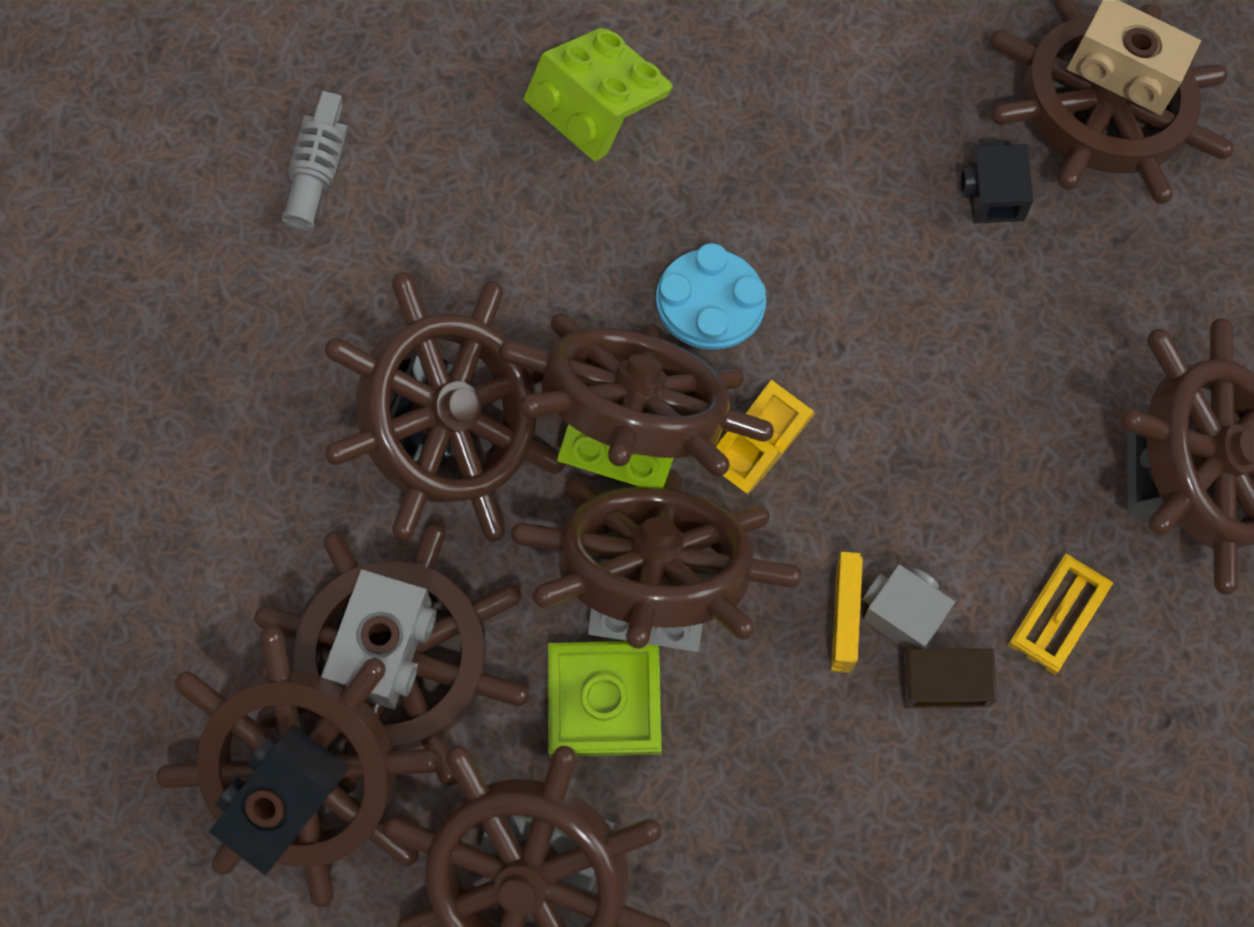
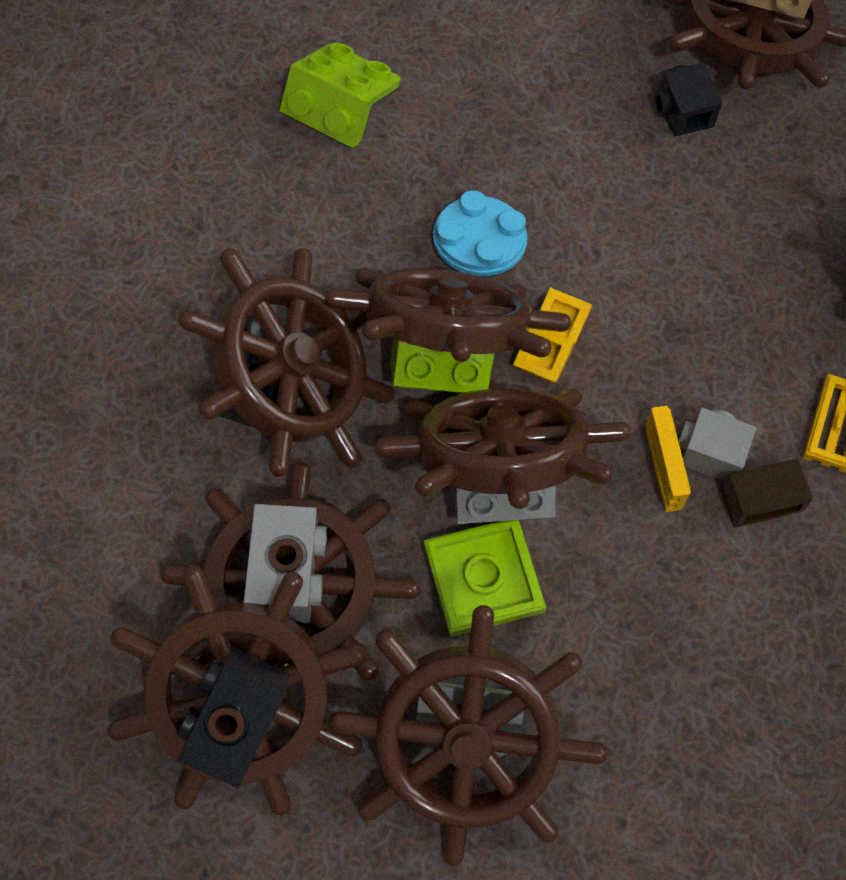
camera: 20 degrees left, 5 degrees down
(314, 161) = (114, 193): light grey hinge -> none

